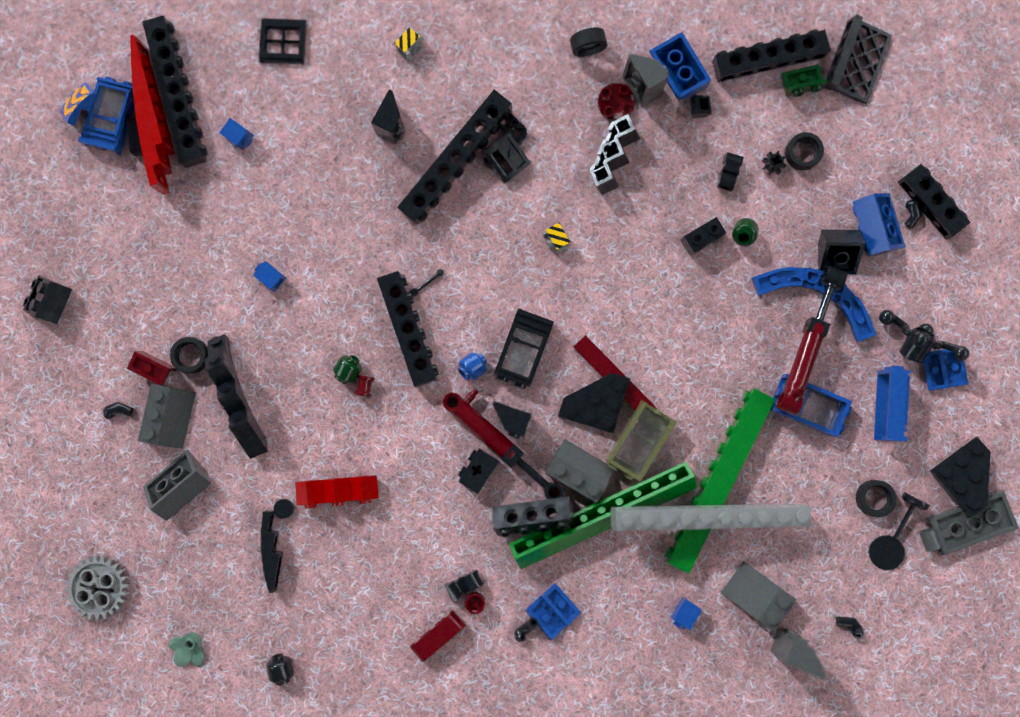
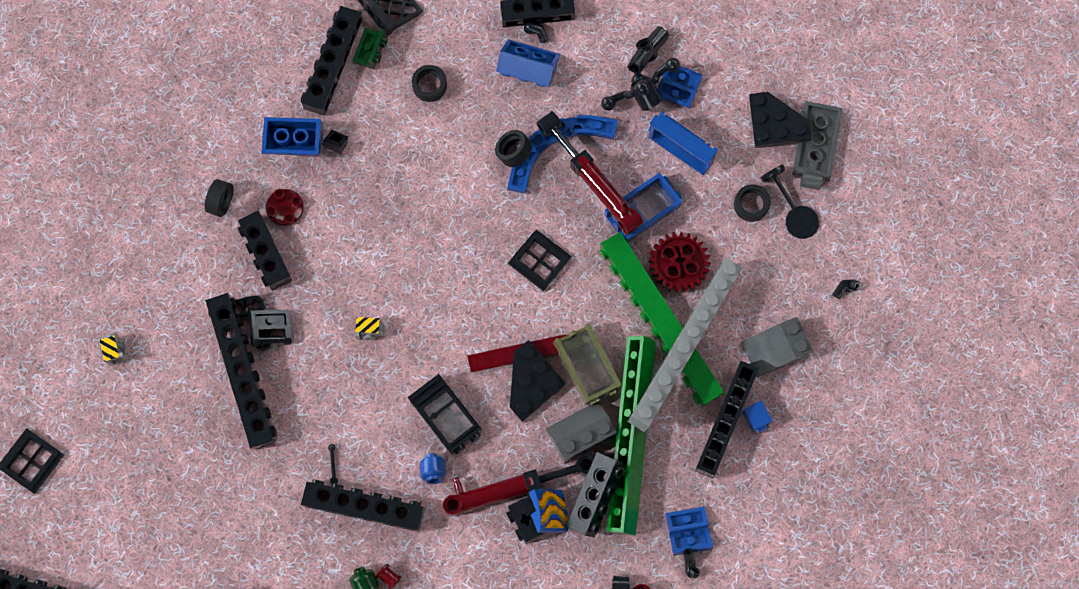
camera: 65 degrees left, 10 degrees down
(236, 134) = (86, 553): blue brick -> none
(387, 120) = (169, 407): black slope -> none
(496, 486) = (550, 512): none -> slope
(512, 419) = (500, 461): black slope -> none
(580, 83) = (255, 223): none -> black brick
(612, 154) = (327, 237): black brick -> none
(645, 78) = (282, 170): dark grey slope -> none
(667, 589) = (726, 419): none -> black brick
(703, 236) = (447, 206): black brick -> none
(724, 344) = (529, 273): none -> black piece
(730, 171) = (407, 153): black leg -> none
(745, 232) = (465, 170): dark green head -> none
(778, 161) = (421, 116): black gear -> none
(788, 270) = (520, 154): none -> black tyre
(792, 479) = (696, 259): none -> dark red gear
(797, 653) = (840, 341): dark grey slope -> none
(840, 250) = (529, 105): black slope -> none
(960, 321) = (647, 50): none -> black piece

